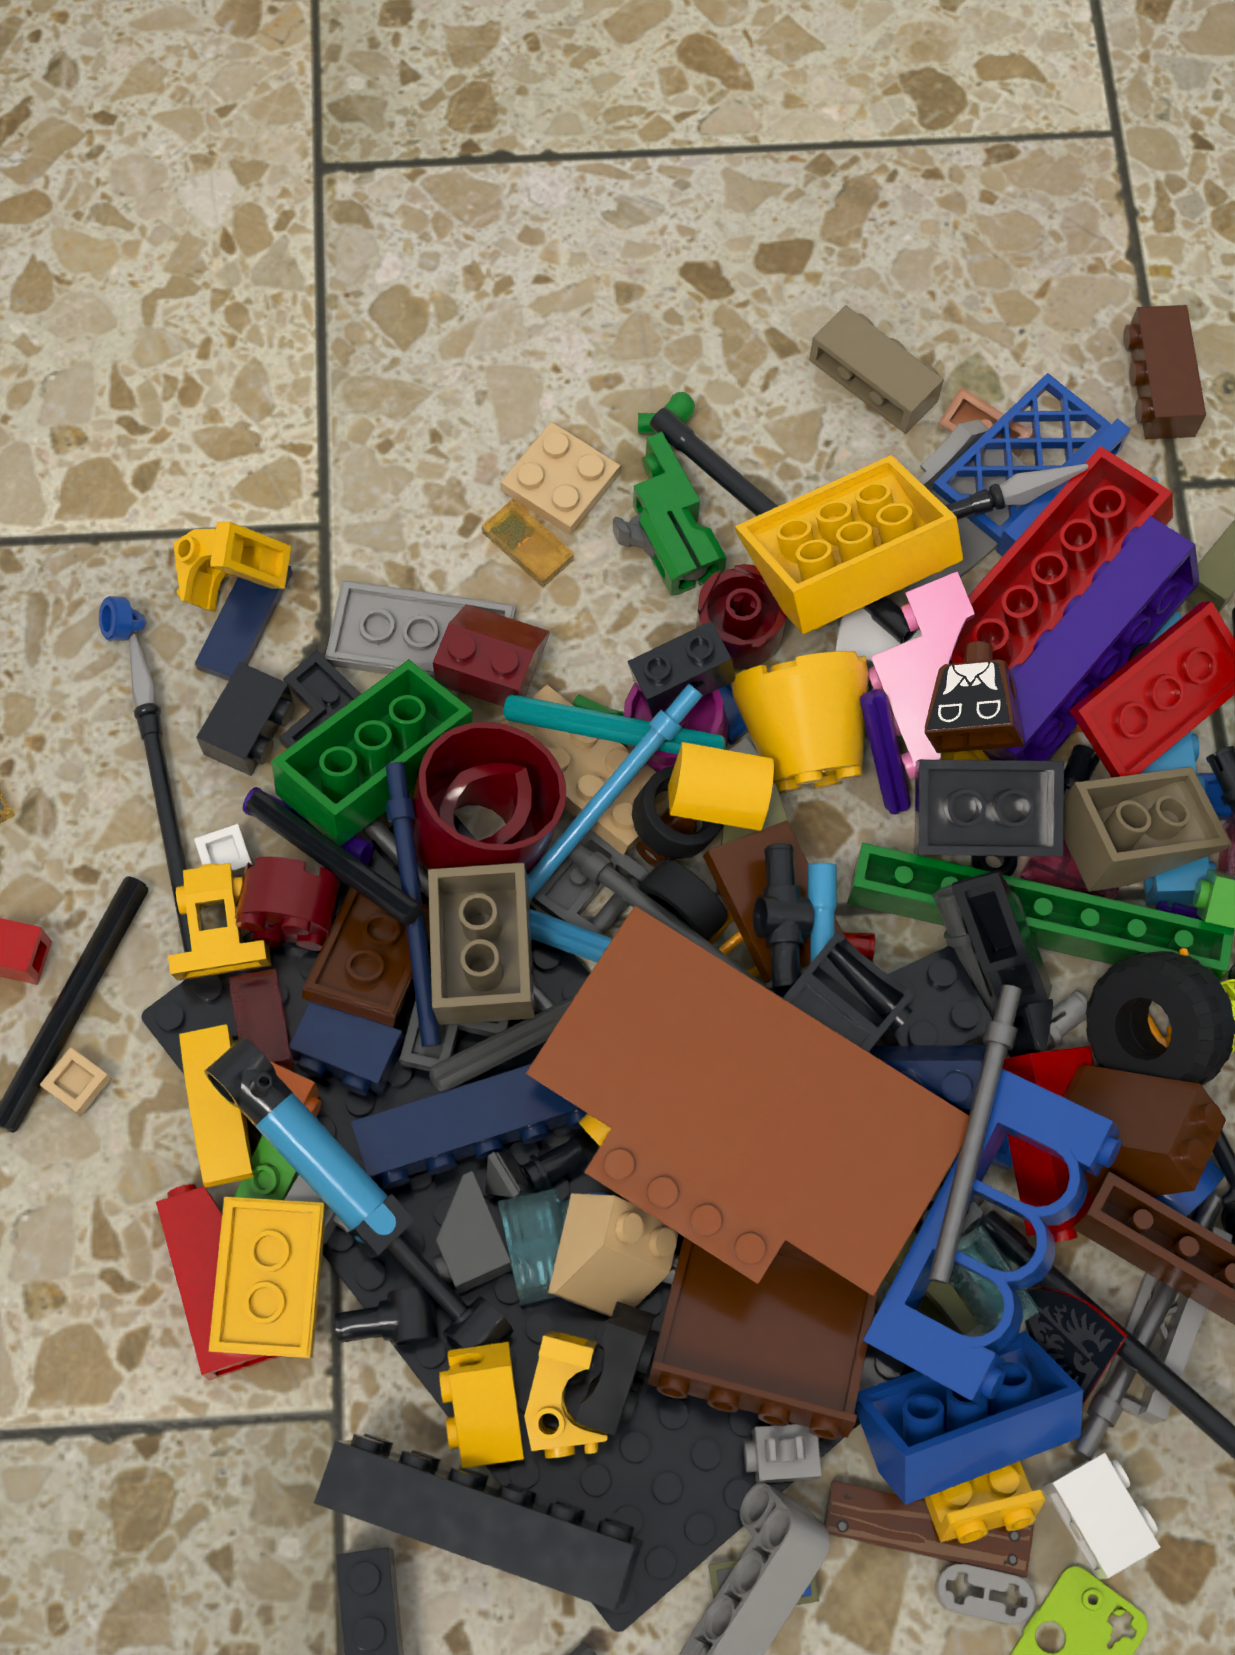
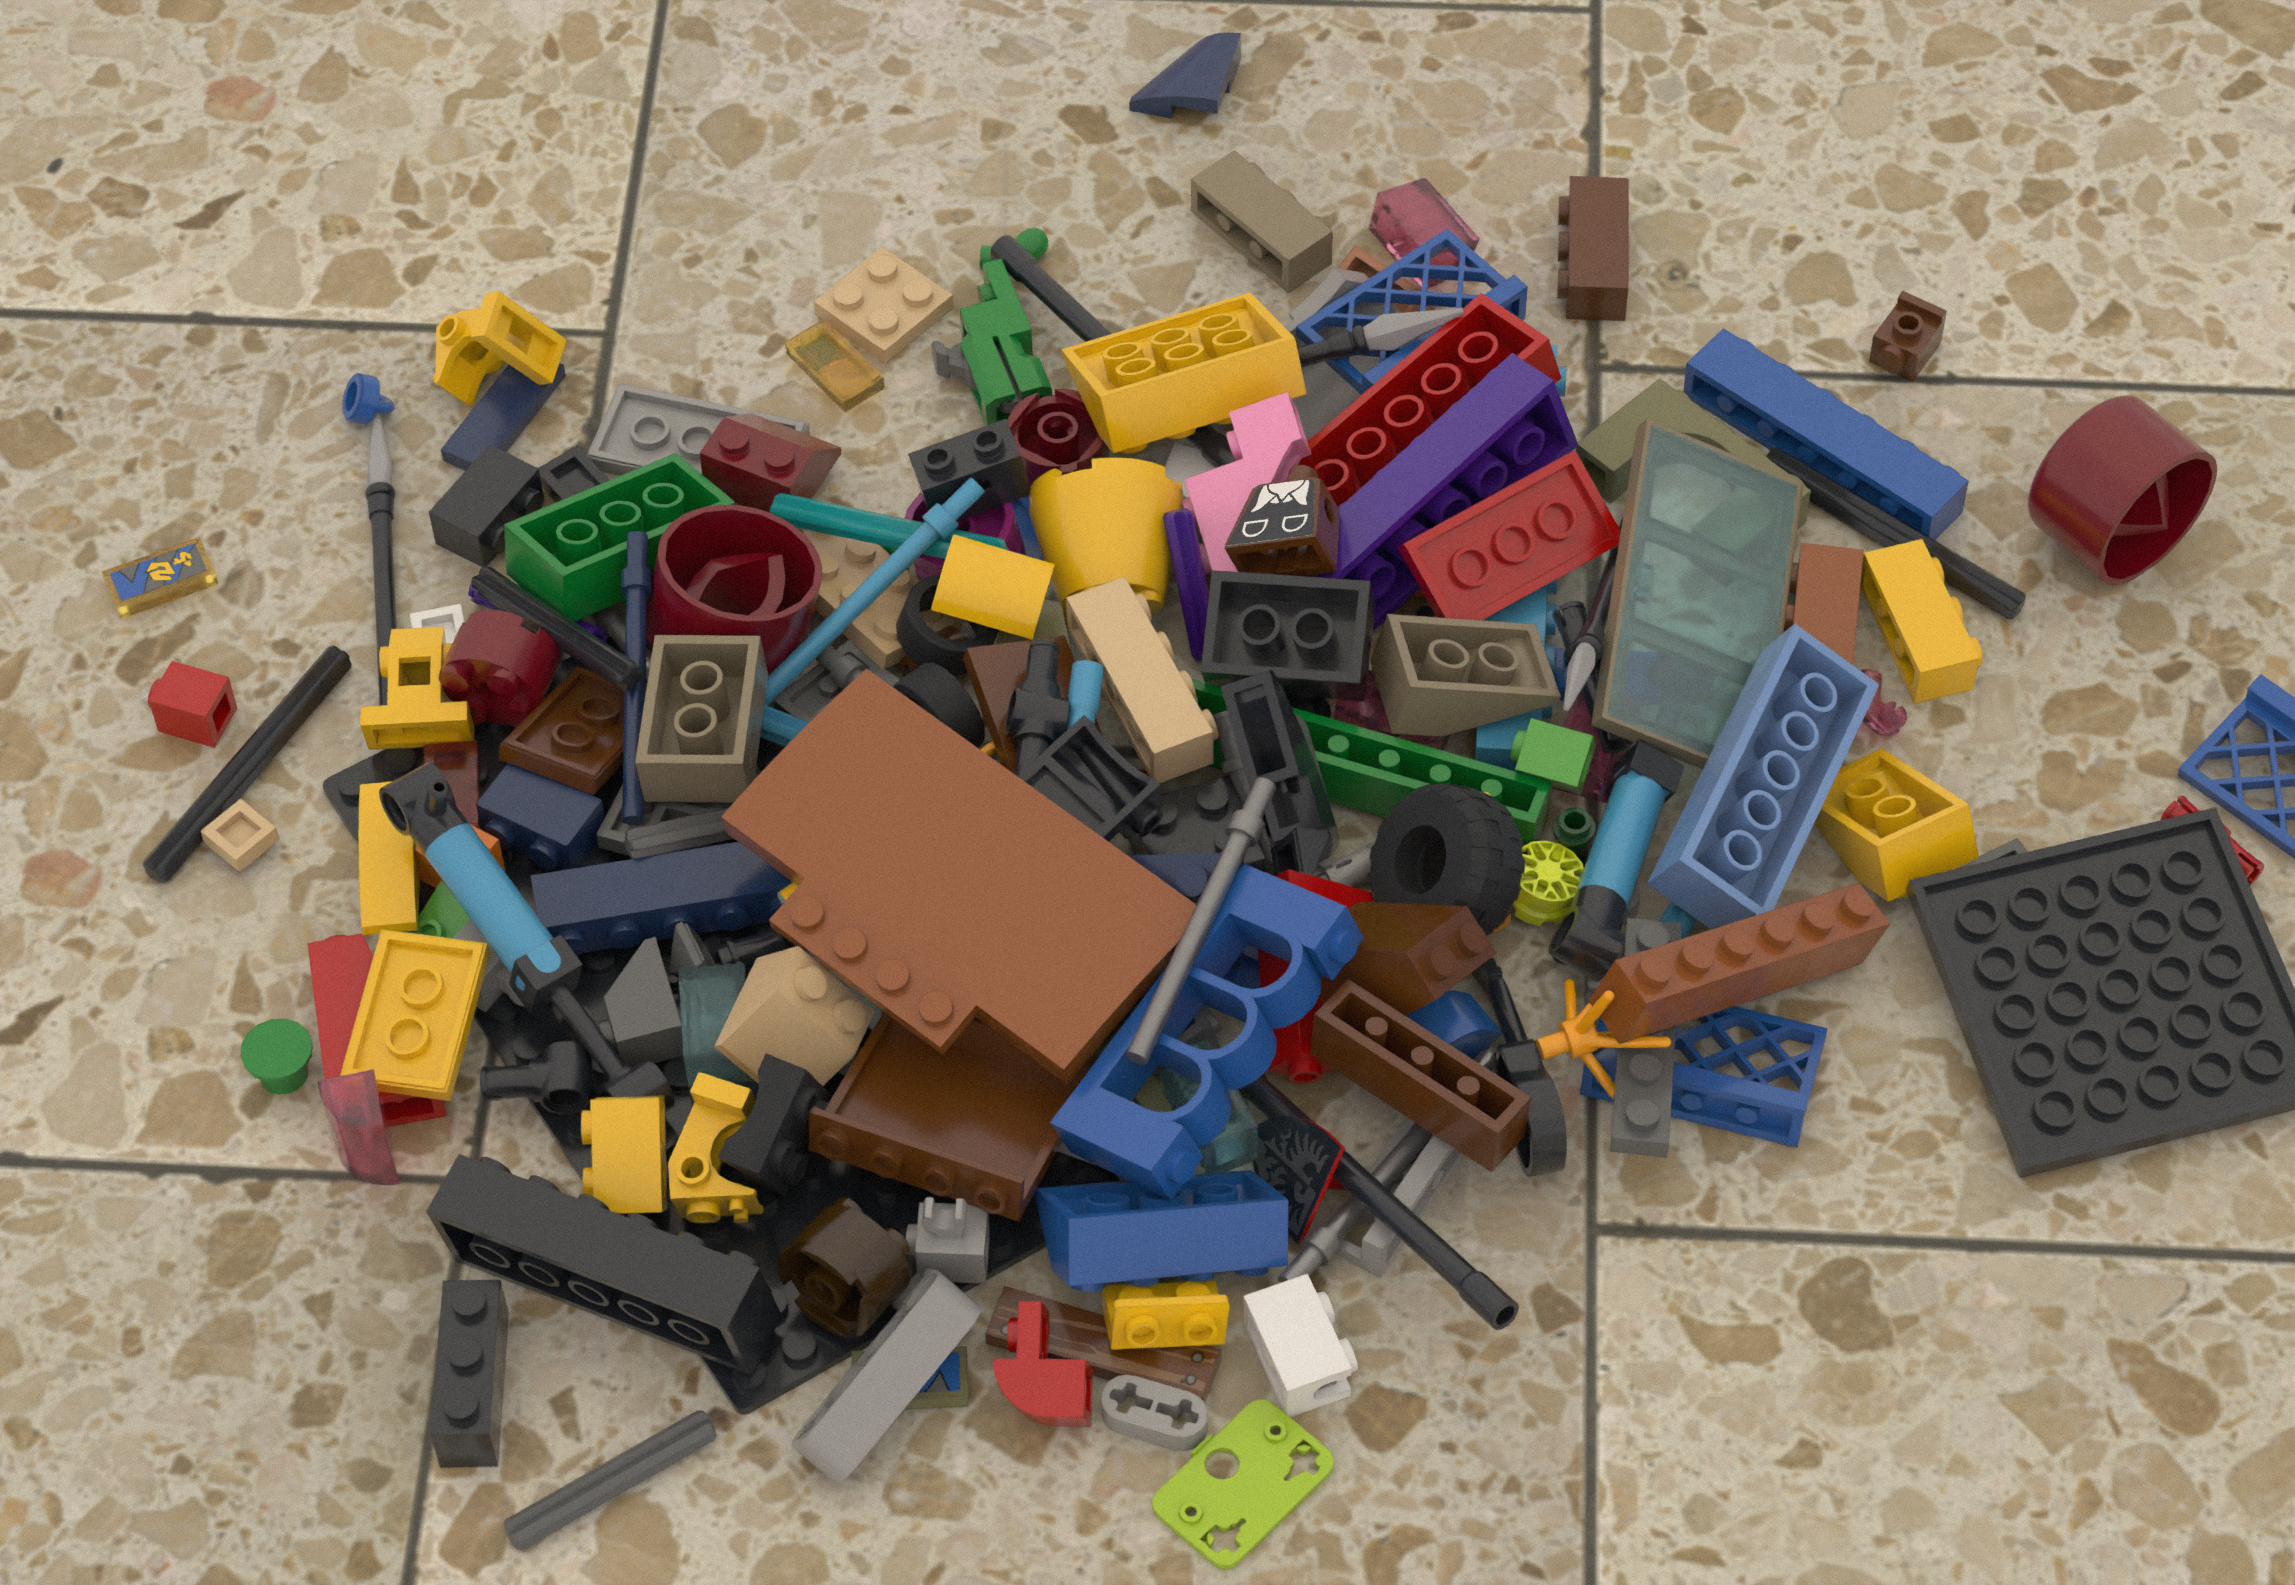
camera: 10 degrees right, 15 degrees down
(144, 1314) = (278, 1055): none -> green piece
(235, 1391) = (360, 1126): none -> clear pink brick
(700, 1502) = (845, 1268): none -> dark brown brick
(791, 231) = (1194, 79): none -> dark blue slope
(869, 870) = (1141, 680): none -> tan brick
(883, 1591) = (1039, 1387): none -> red brick
(1011, 363) = (1411, 216): none -> clear pink brick

